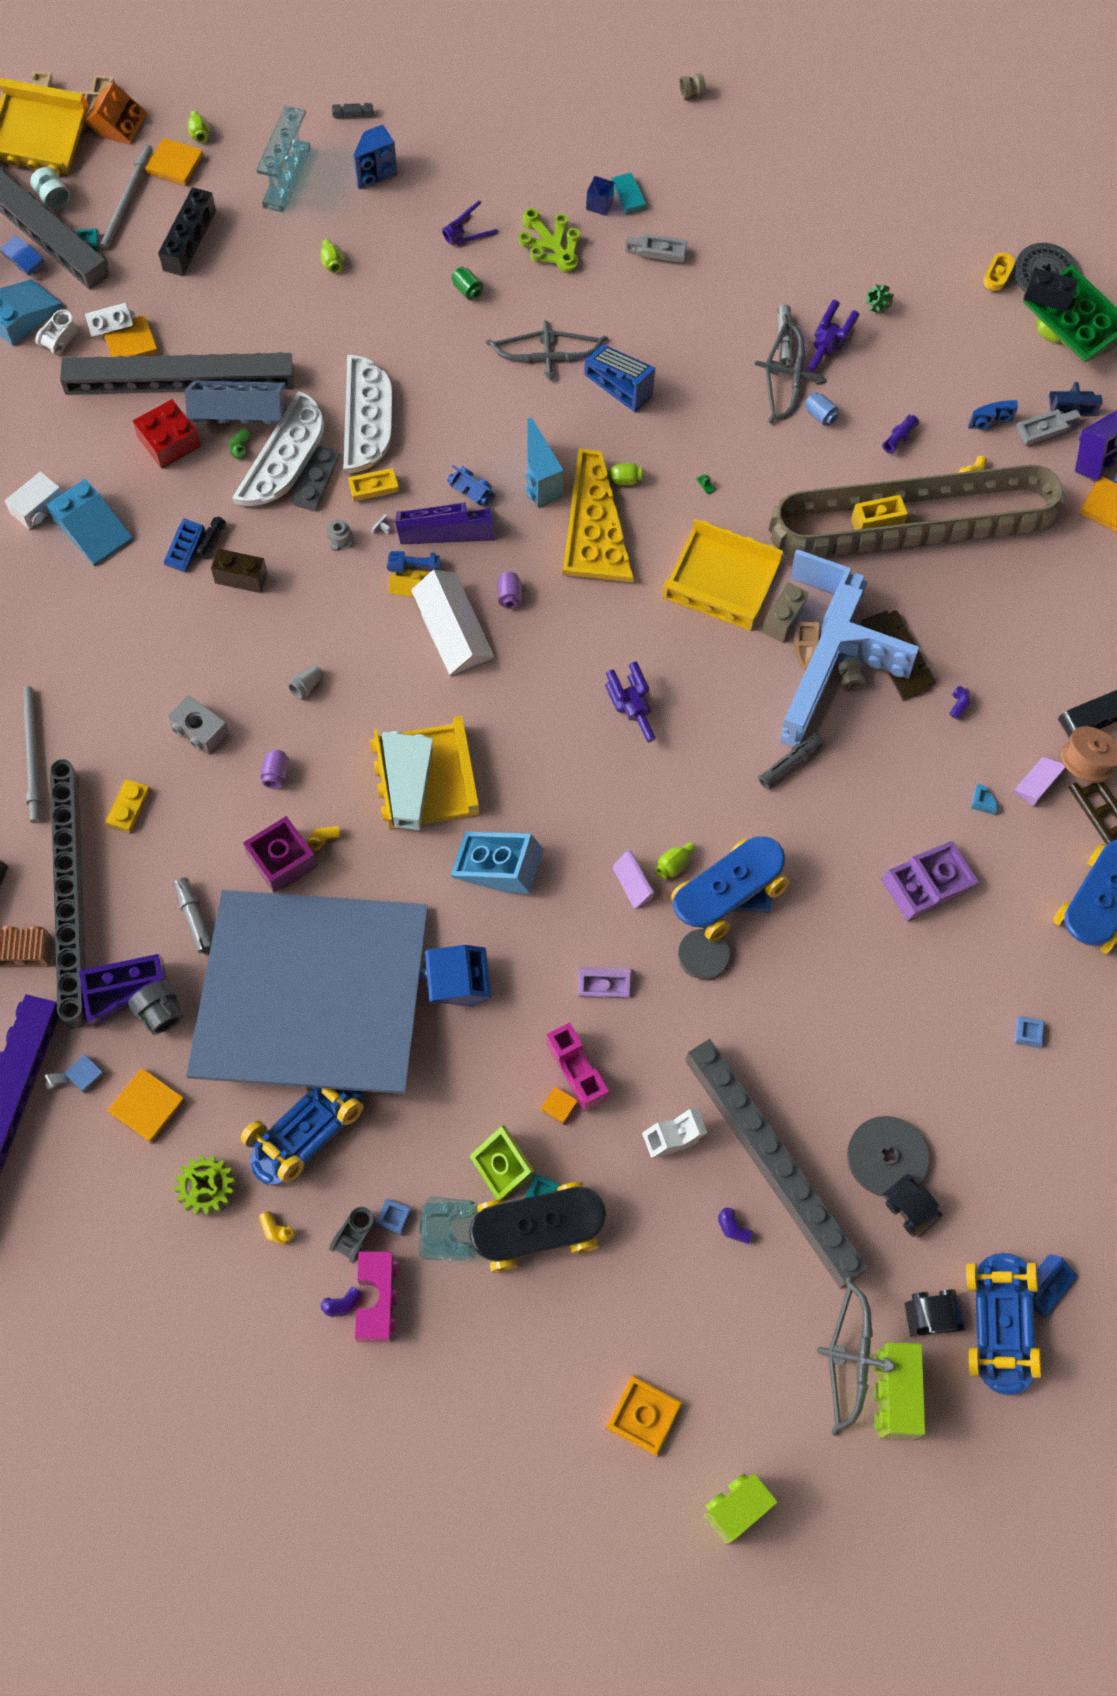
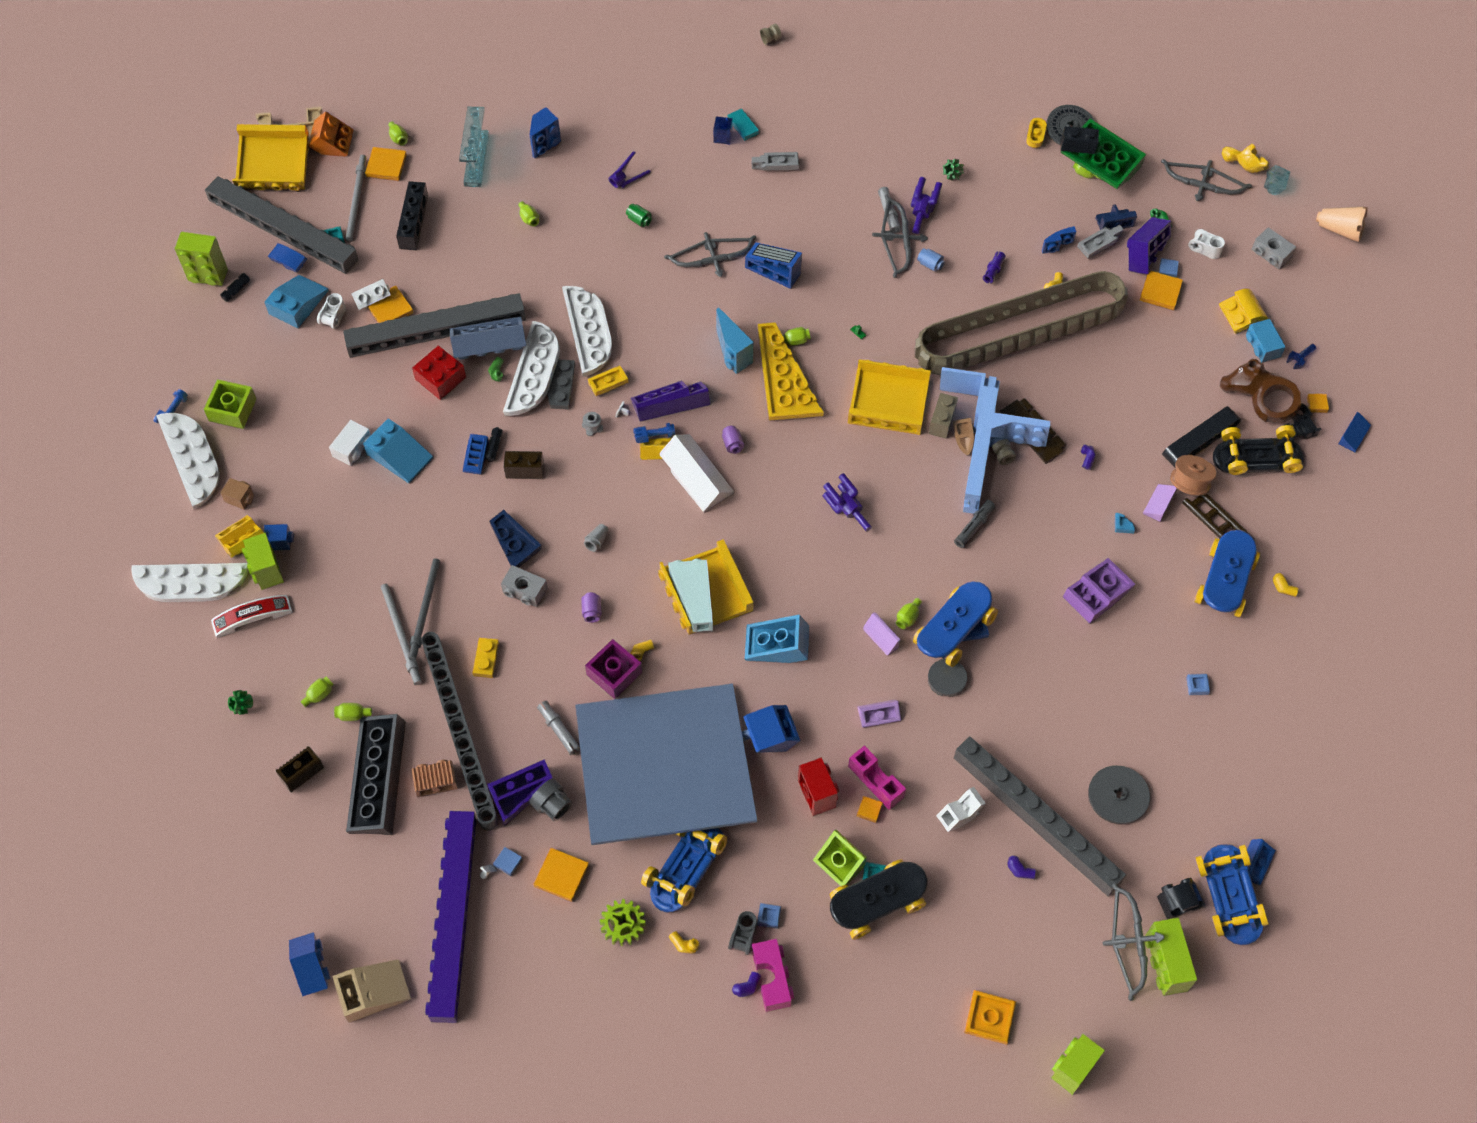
camera: 10 degrees left, 5 degrees down
(44, 766) = (415, 641): none -> dark grey bar
(50, 188) = (295, 202): light aqua wheel -> none
(202, 663) = (514, 539): none -> dark blue wing
(352, 110) = (514, 99): dark grey axle -> none
(435, 1230) = (803, 917): clear light blue piece -> none
(479, 489) = (689, 368): blue hinge -> none
(497, 1063) = (817, 786): none -> red brick
(565, 259) = (708, 183): lime plant -> none
(879, 513) = (994, 329): yellow brick -> none
(914, 1205) = (1147, 824): black cylinder -> none

